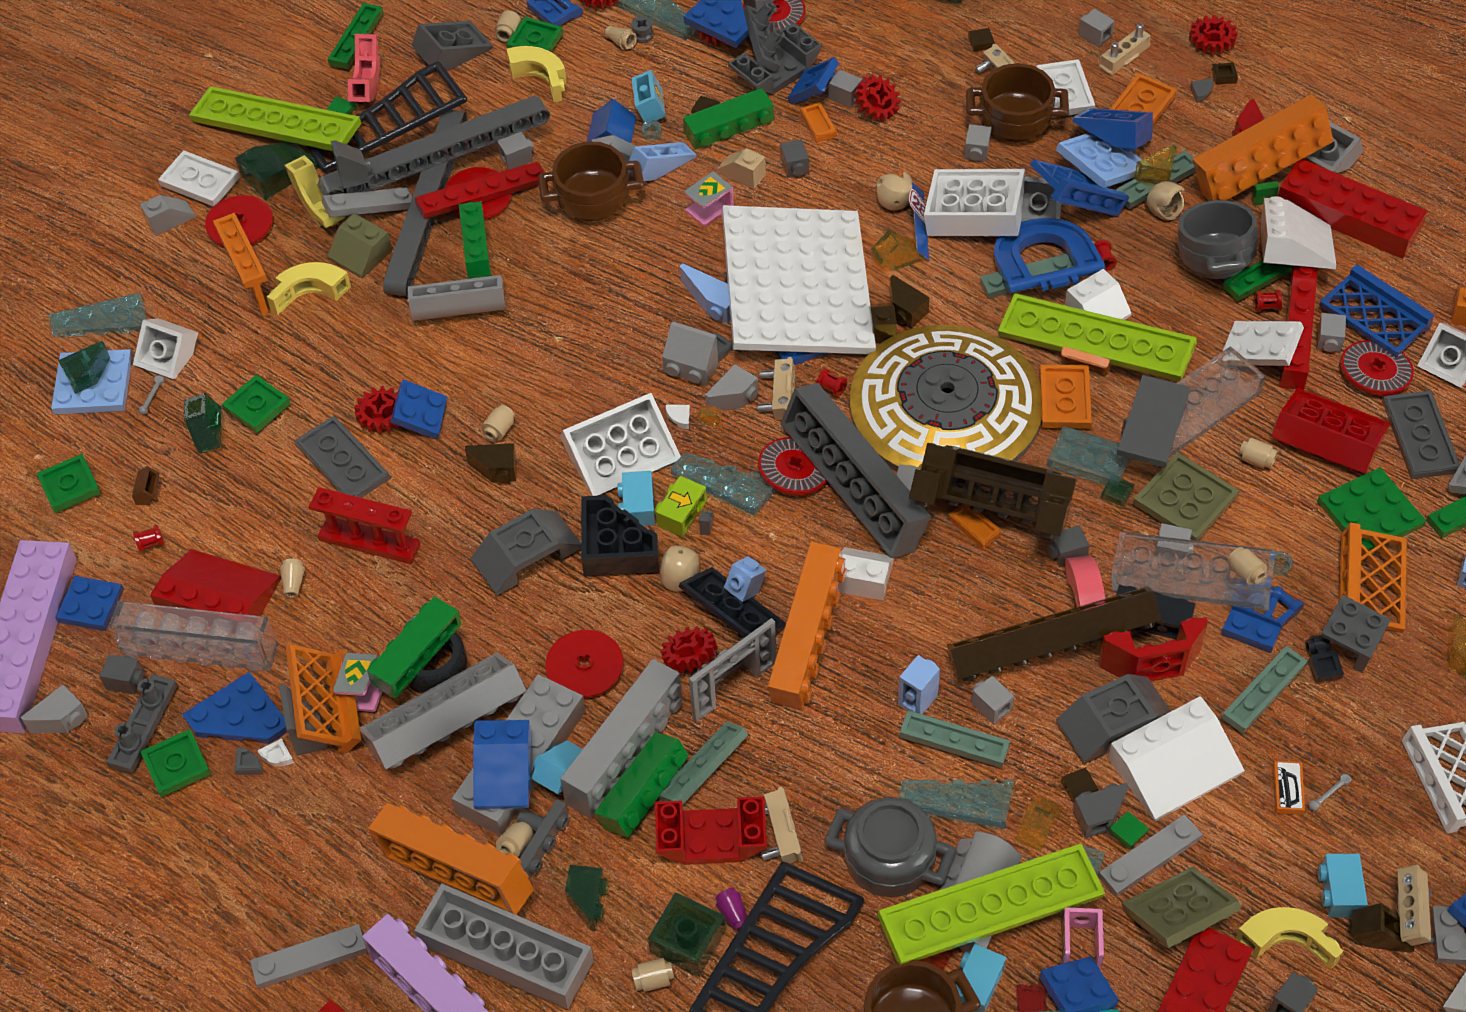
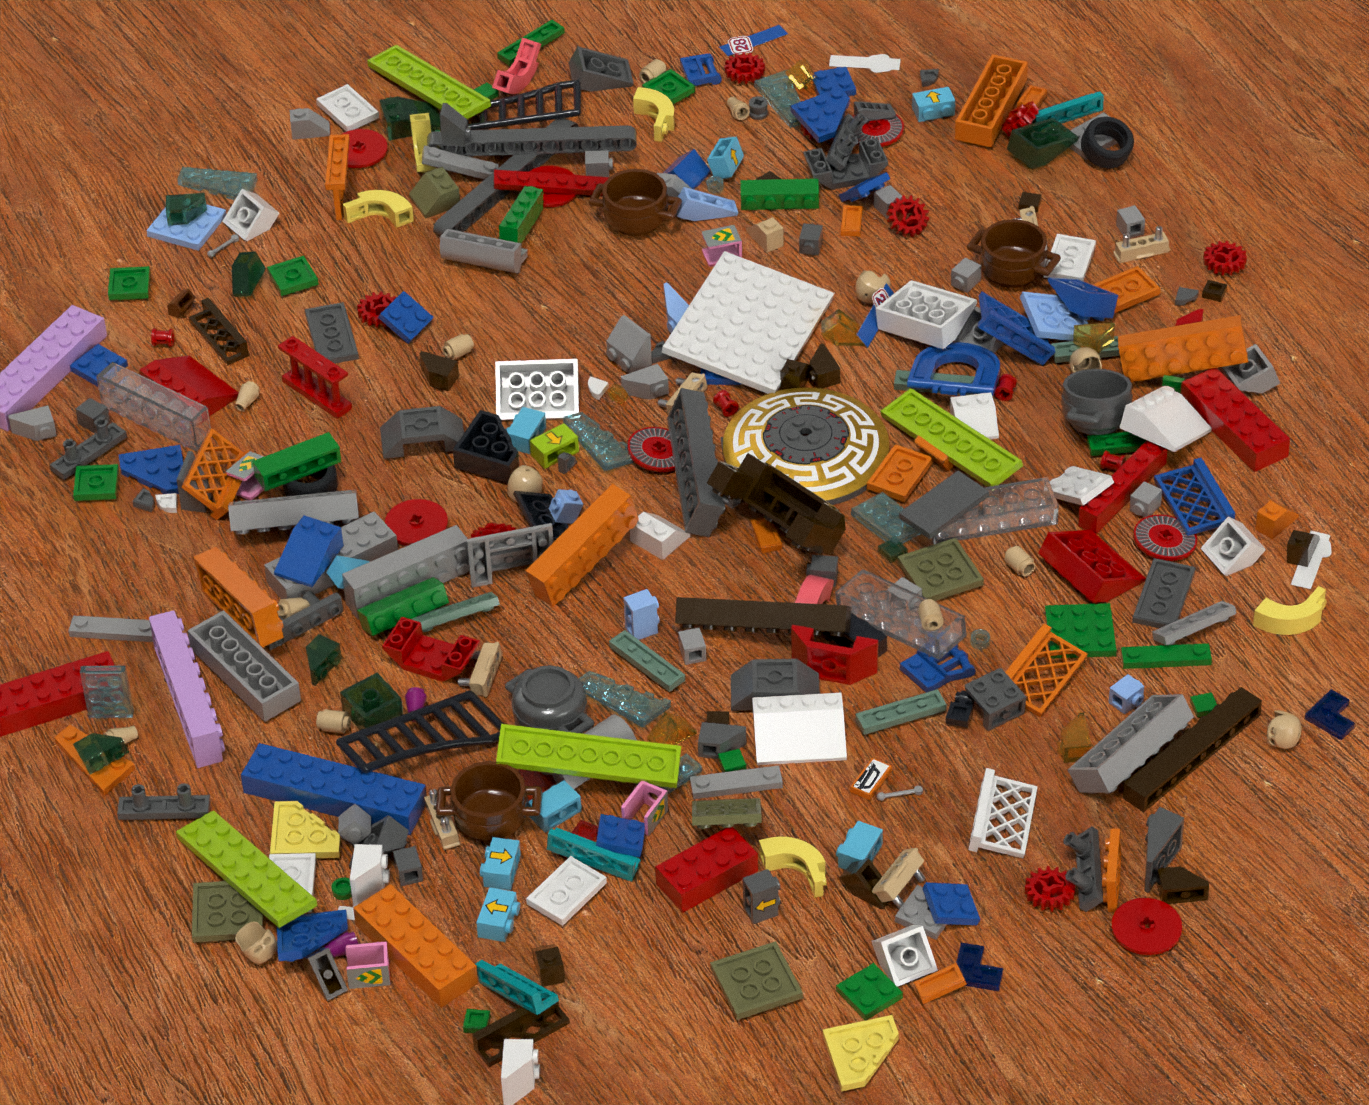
camera: 25 degrees right, 10 degrees down
(220, 502) = (225, 332): none -> dark brown fence

